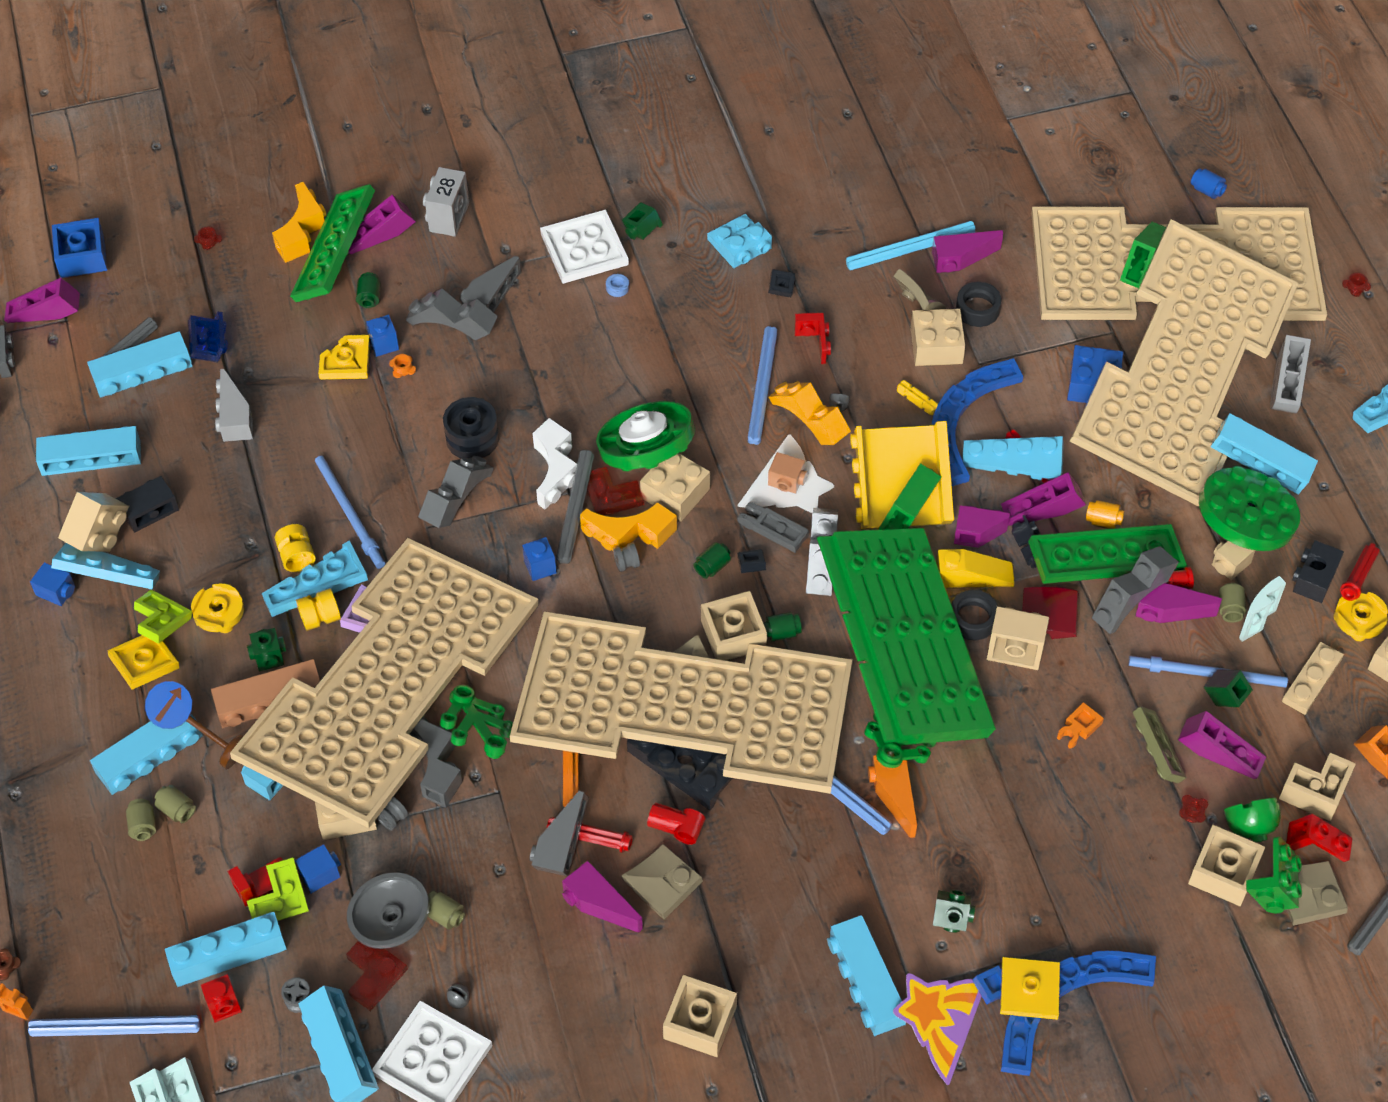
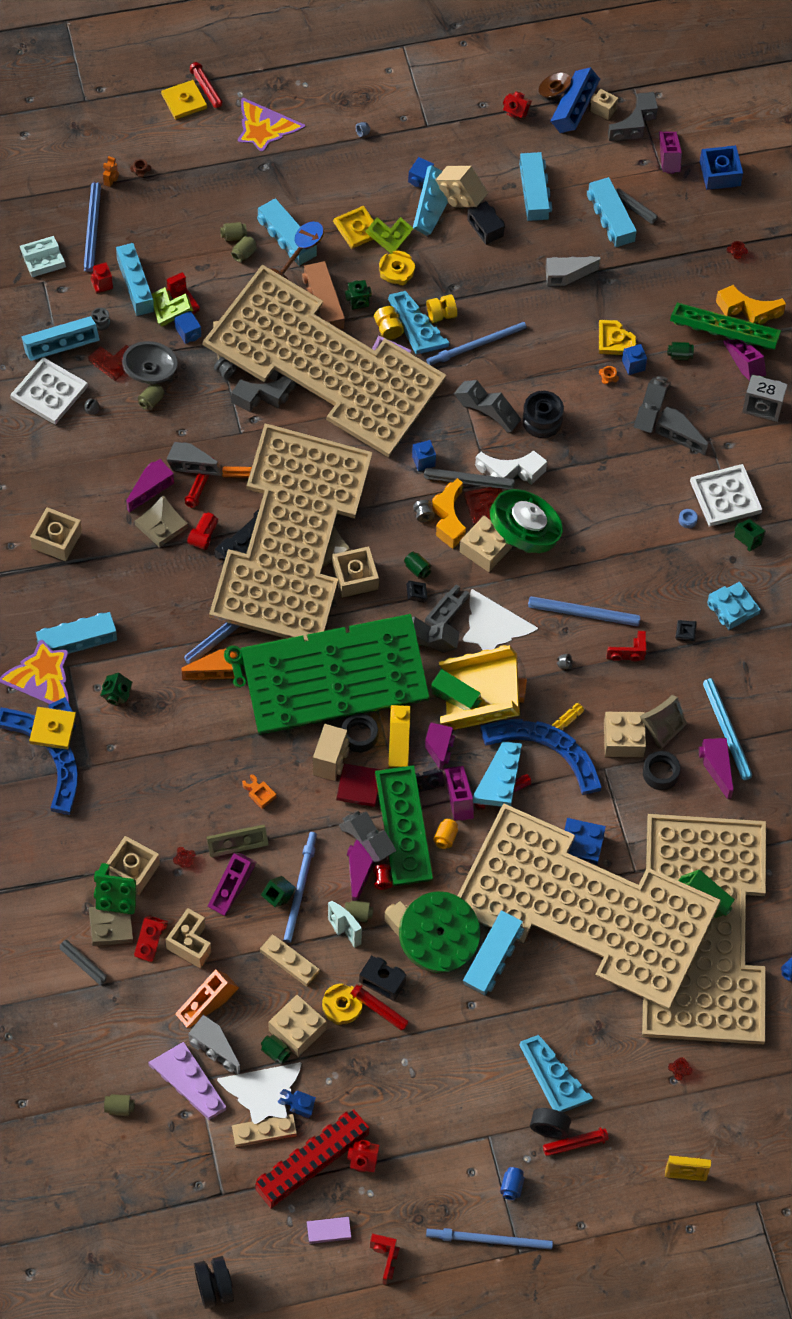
camera: 90 degrees right, 5 degrees up
(207, 337) = (636, 250): clear blue bracket -> none
(464, 698) = (290, 413): green plant -> none
(782, 626) = (357, 606): dark green brick -> none
(787, 473) = (493, 617): nougat brick -> none
(803, 401) = (556, 631): light orange arch -> none
(1254, 819) = (168, 890): green cylinder -> none
(1290, 374) = (565, 981): light grey brick -> none

